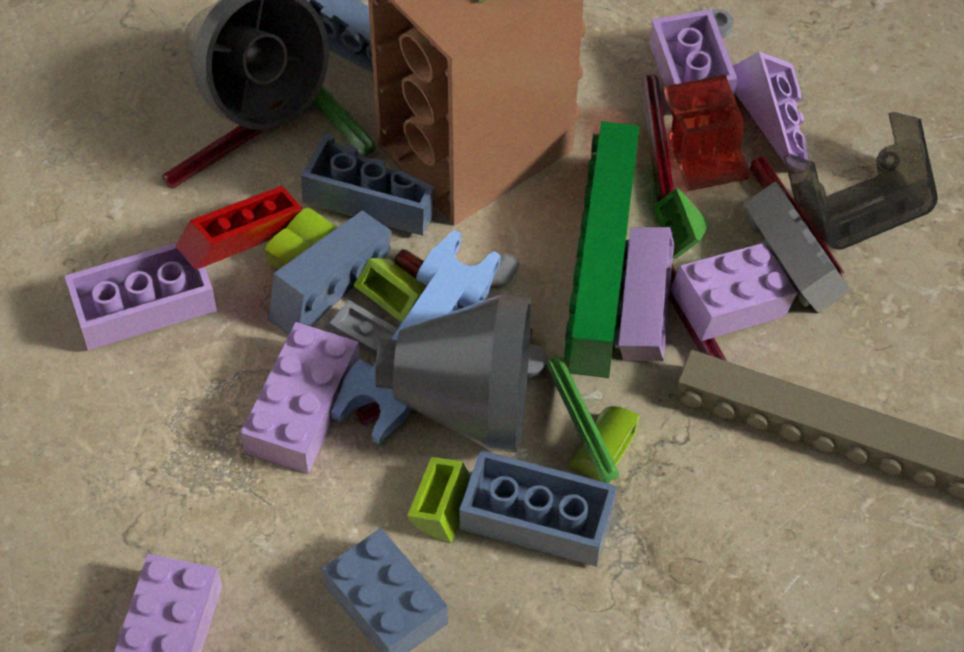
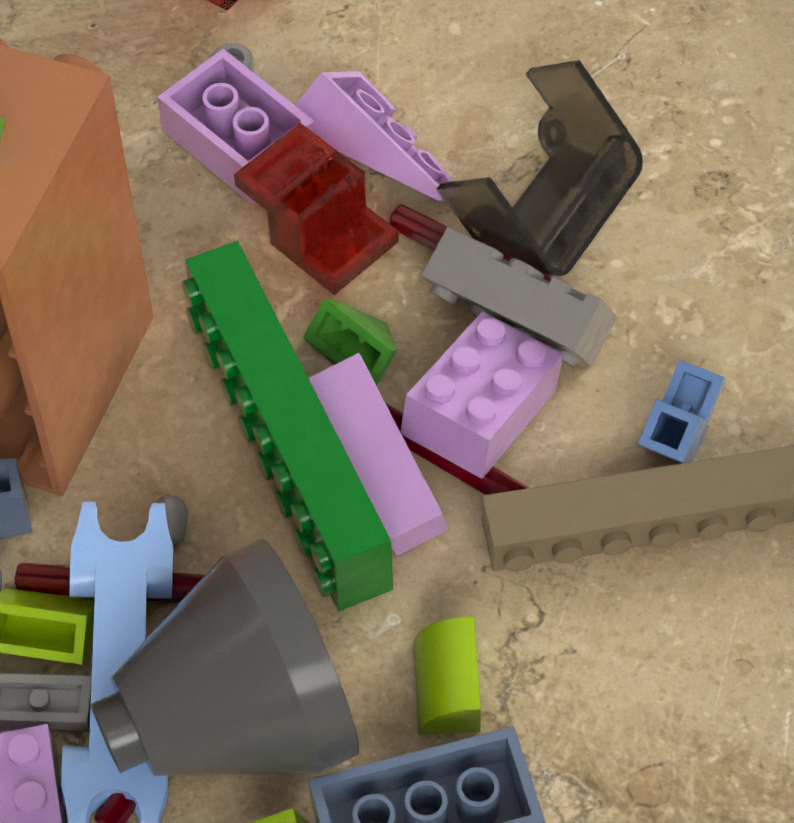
camera: 30 degrees left, 0 degrees up
(582, 420) = (408, 664): bright green axle -> none
(657, 136) = (256, 249): dark red axle -> none
(846, 372) = (682, 417): none -> medium blue brick

